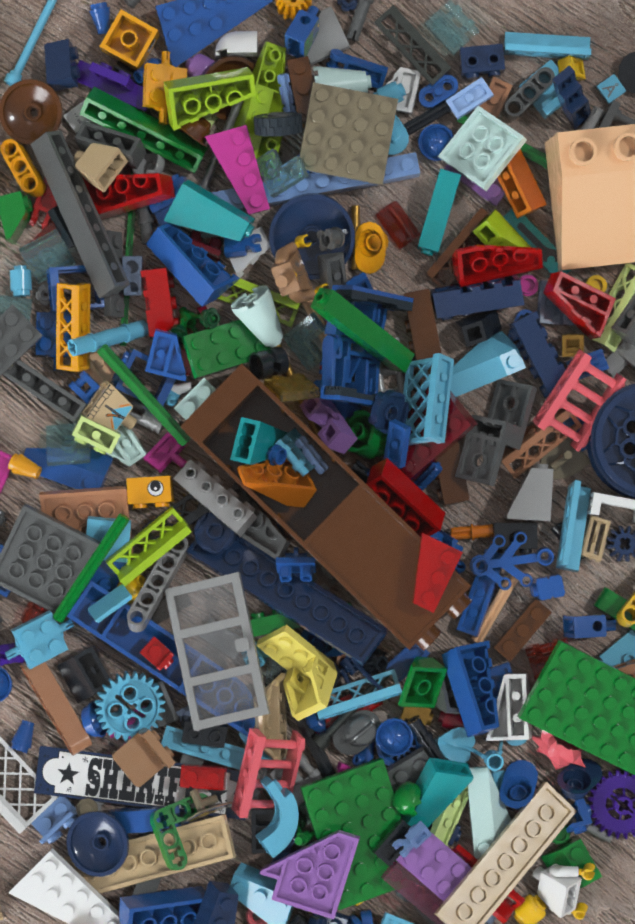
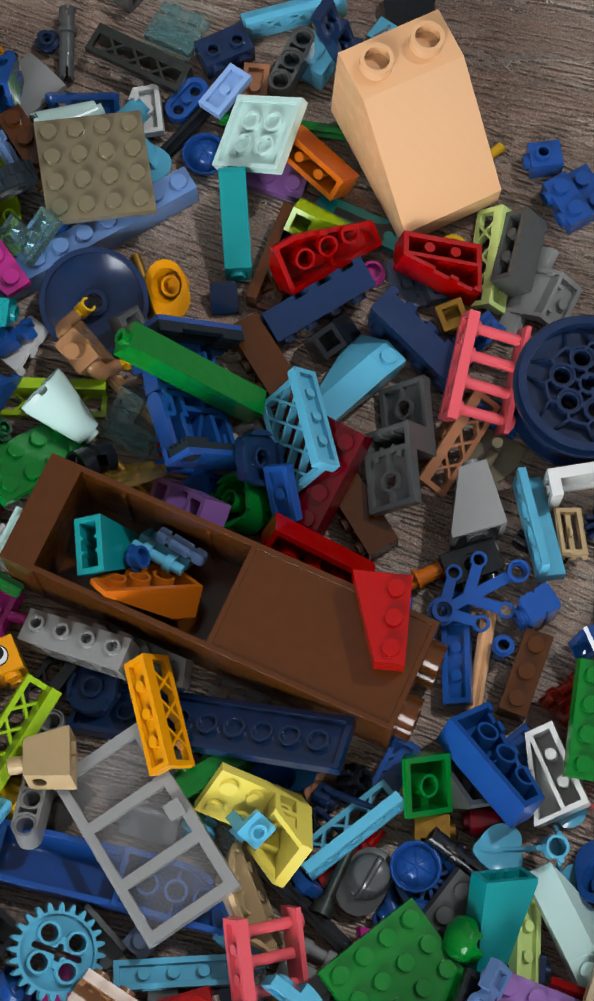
camera: 25 degrees left, 15 degrees down
(157, 654) = (69, 869): red bracket -> none
(166, 577) = (48, 760): none -> tan torso
(210, 736) = (172, 952): black bracket -> none
(250, 572) = (152, 713): none -> light orange fence
(289, 676) = (253, 829): none -> medium azure bracket
(296, 563) = (209, 686): blue hips -> none
(330, 238) = (116, 292): dark grey brick -> none
(398, 224) = (193, 260): clear red slope -> none
(410, 265) = (224, 298): none -> dark blue slope
(428, 475) = (338, 524): blue axle -> none
(518, 608) = (506, 642): none -> blue pin

